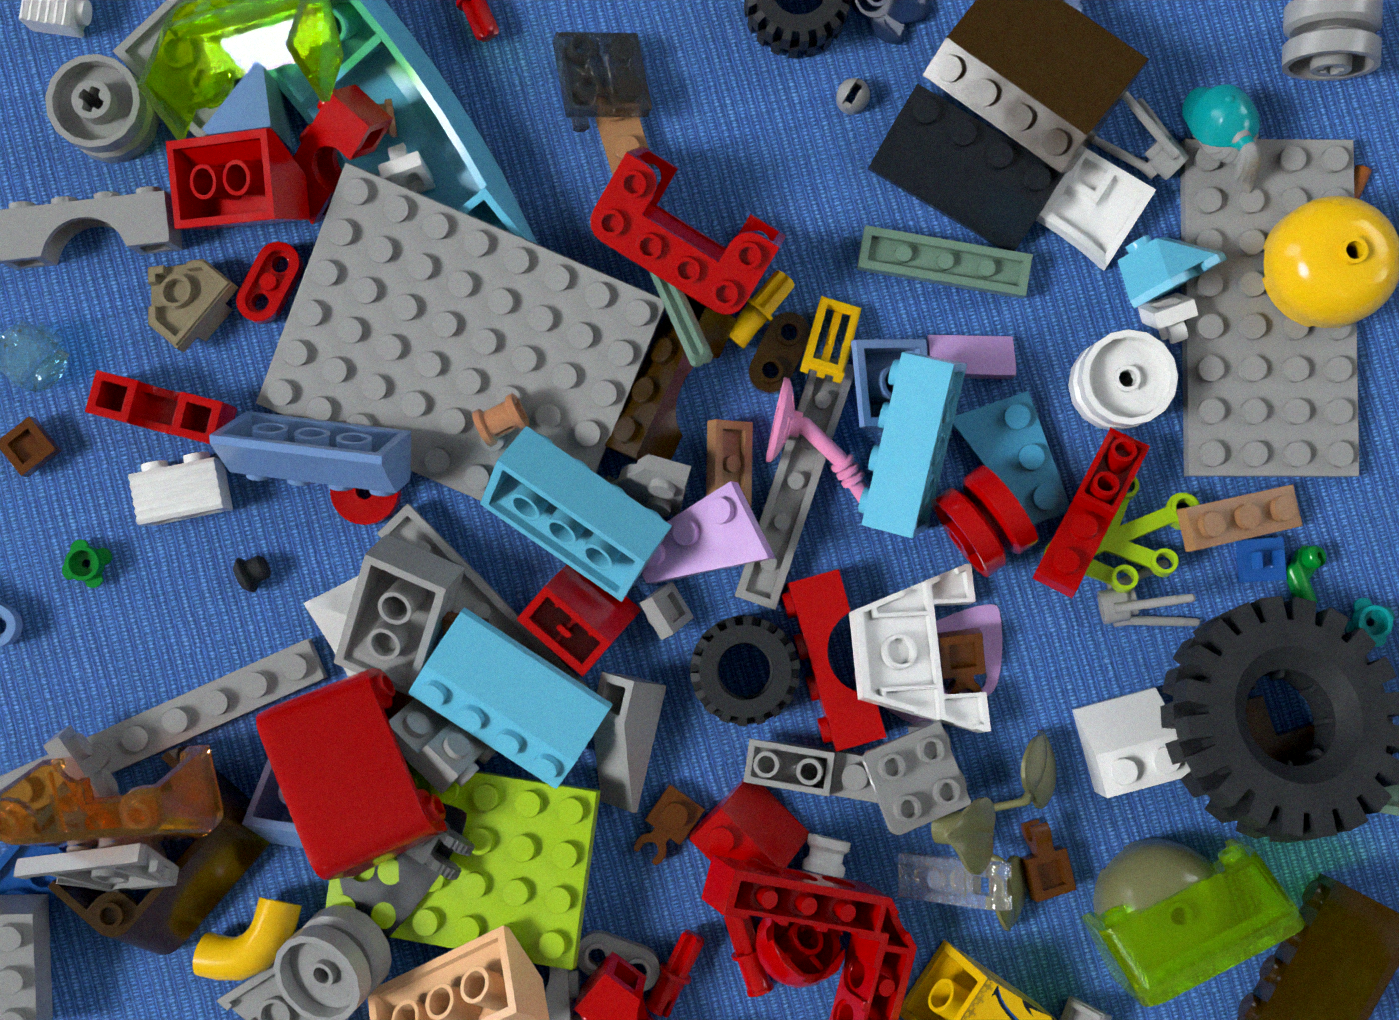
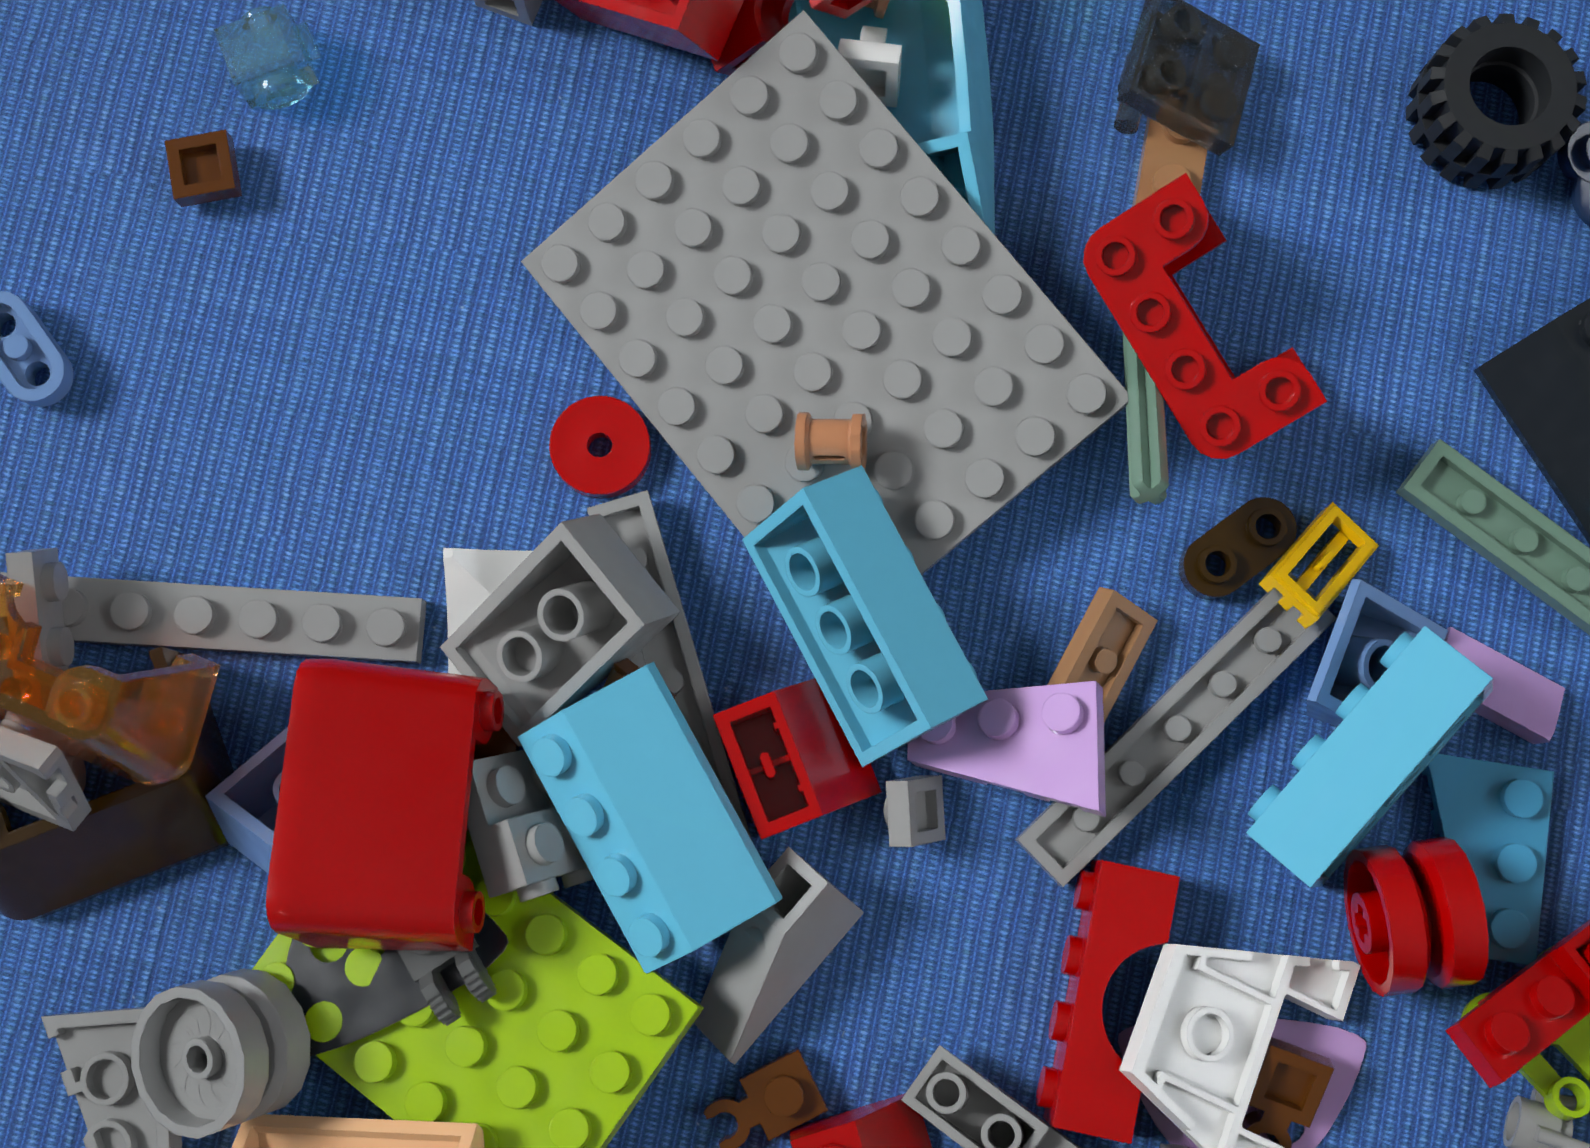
camera: 30 degrees right, 5 degrees down
(74, 563) = (179, 343): green plate -> none
(157, 407) = (394, 207): red arch -> none
(180, 490) = (364, 322): white brick -> none
(188, 301) = (505, 90): dark tan plate -> none
(251, 572) = (397, 474): black piece -> none
(254, 951) = (124, 976): yellow cylinder -> none
(266, 281) = (616, 117): red plate -> none
(315, 452) = (564, 361): medium blue slope -> none
(649, 414) = (1018, 550): dark brown arch -> none
(655, 483) = (994, 632): light grey wing -> none
(754, 707) = (1037, 959): black tyre -> none
(760, 308) = (1241, 477): yellow axle -> none
(792, 423) = (1211, 644): bright pink dish -> none
(861, 100) = (1511, 276): light grey hinge -> none

